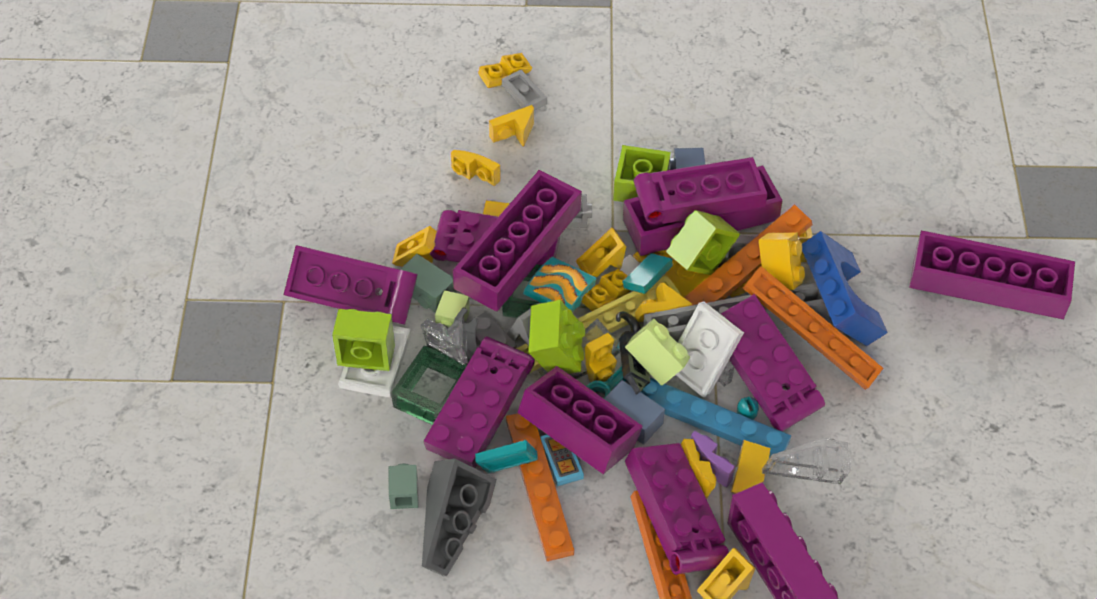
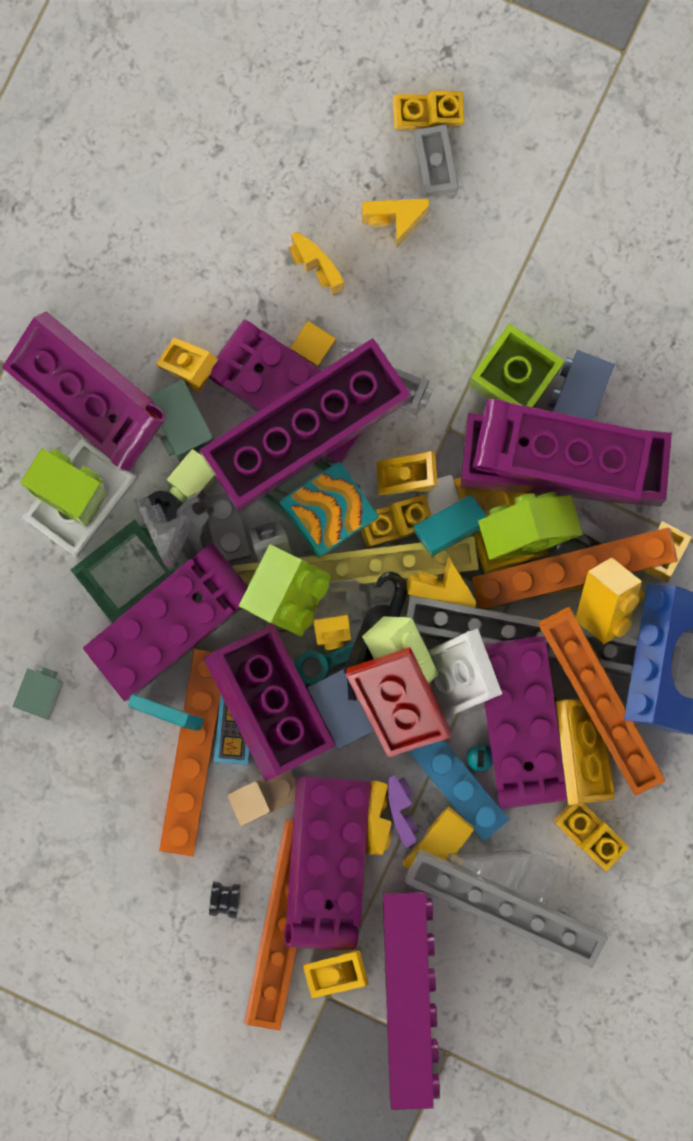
camera: 25 degrees right, 30 degrees up
(453, 505) = (82, 743): dark grey wedge -> none
(605, 491) = (263, 797): none -> tan slope
(614, 568) = (224, 899): none -> black wheel
(673, 378) = (398, 702): none -> tile
(819, 367) = (583, 755): none -> yellow tile
(828, 487) = (506, 908): none -> light grey plate
(855, 426) = (591, 835): none -> yellow slope

